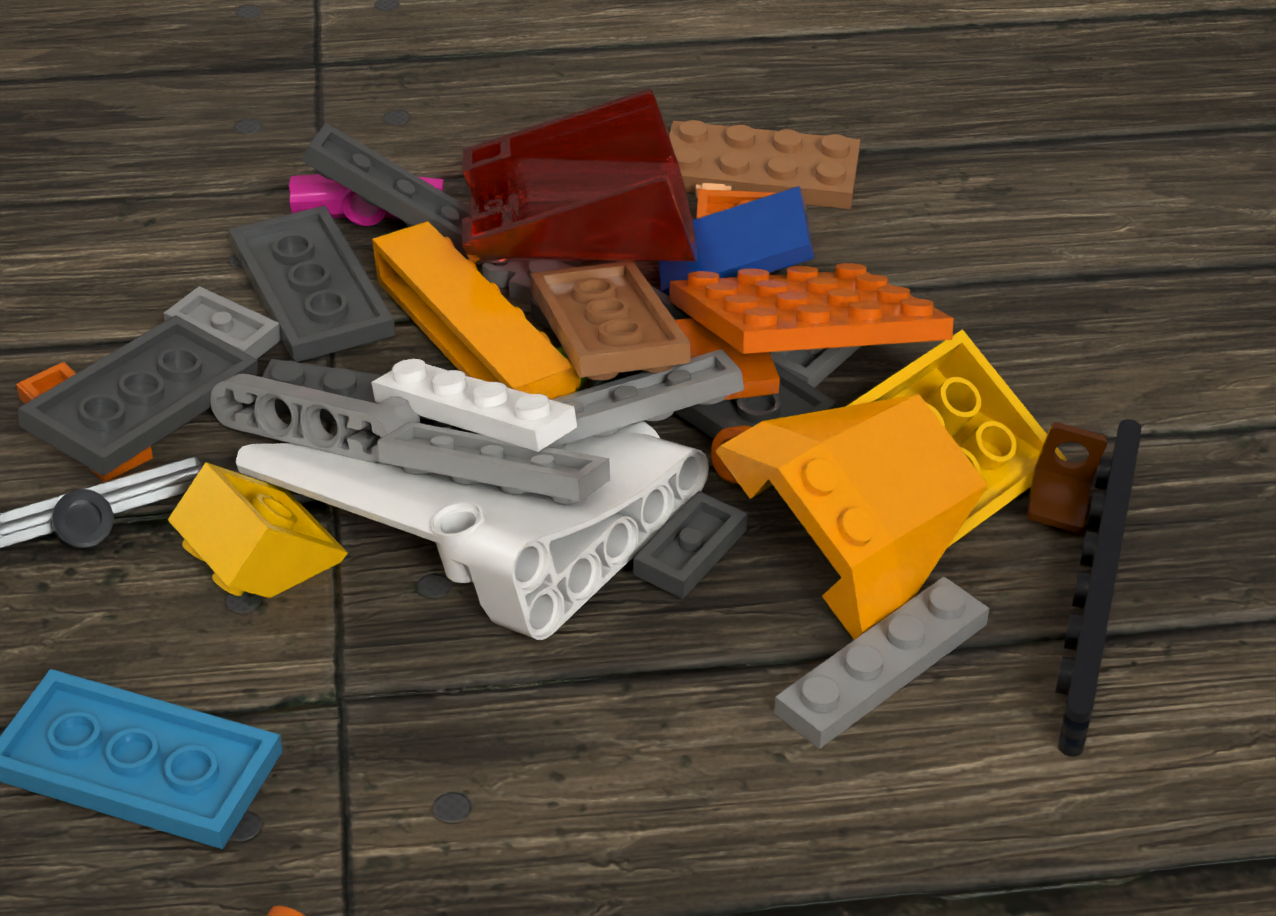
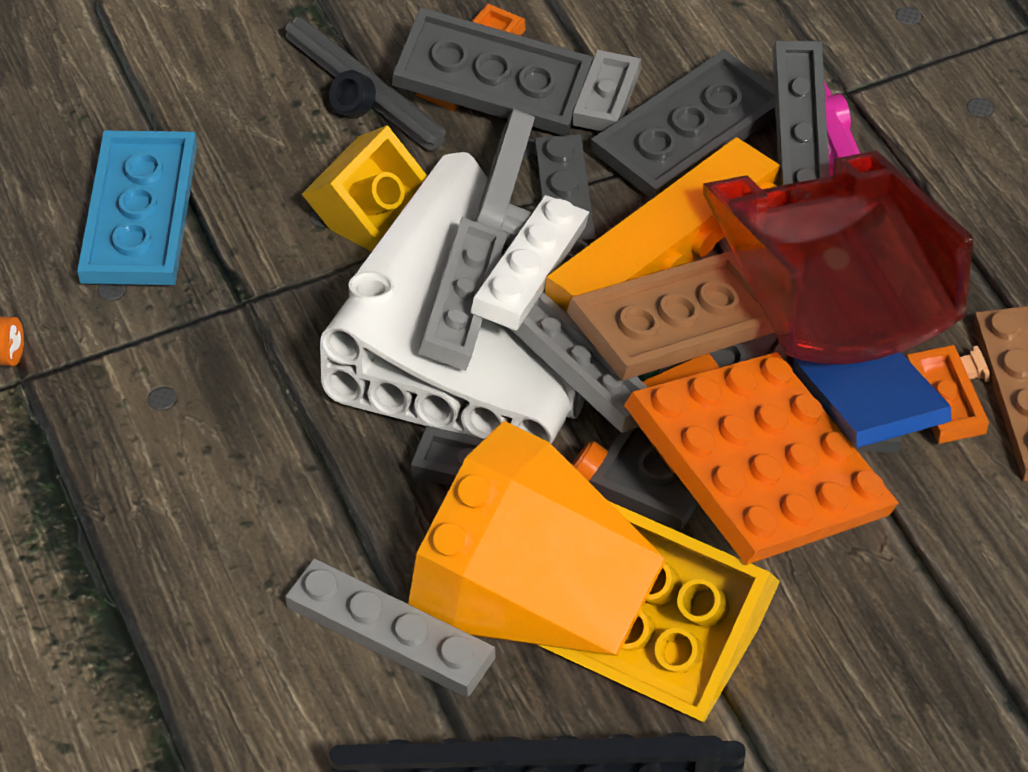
camera: 75 degrees right, 10 degrees up
(1063, 488) = (641, 713): reddish brown bracket -> none

